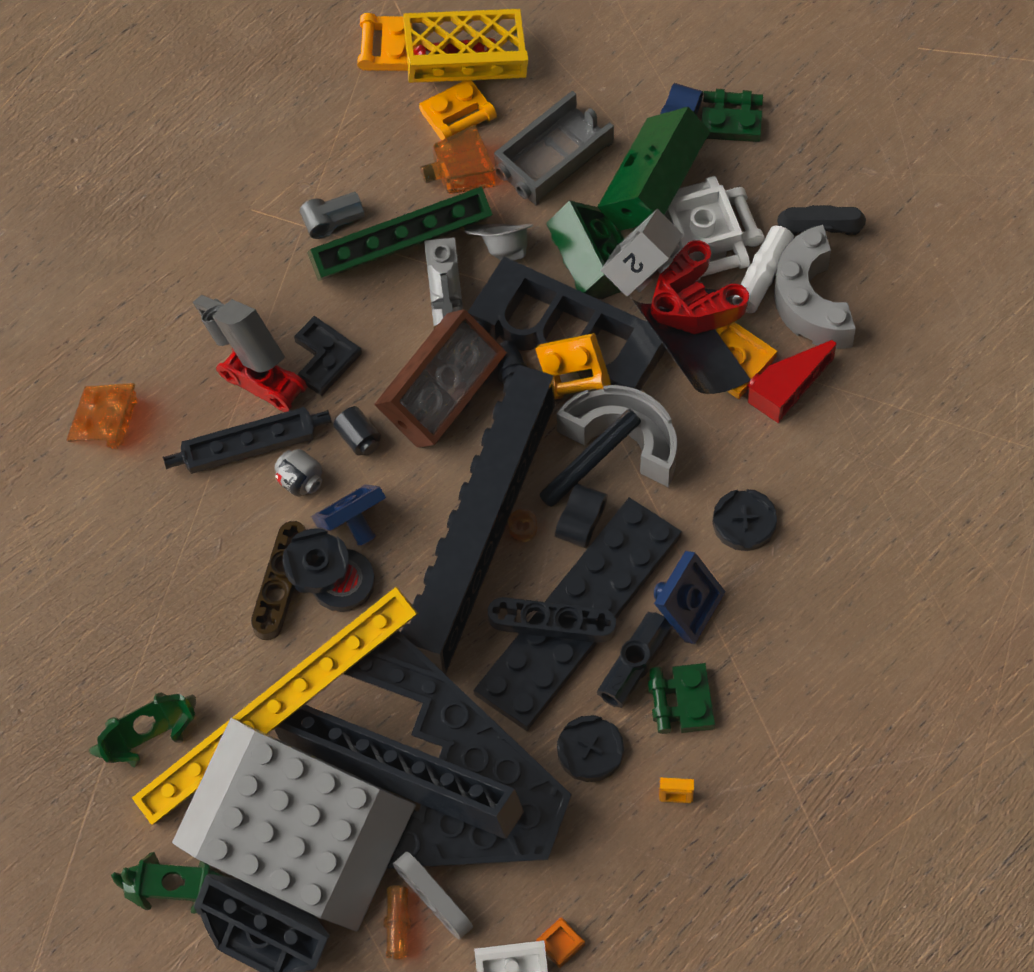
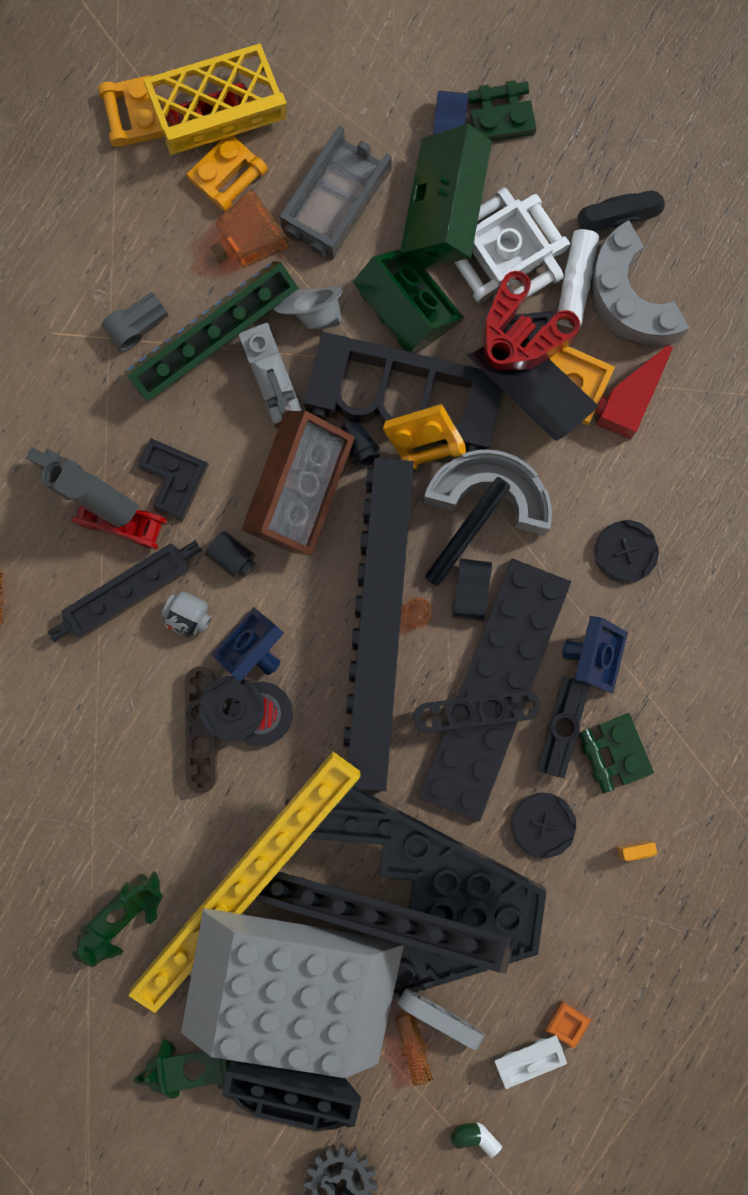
camera: 15 degrees left, 20 degrees up
(643, 253) = (462, 298): light grey brick -> none

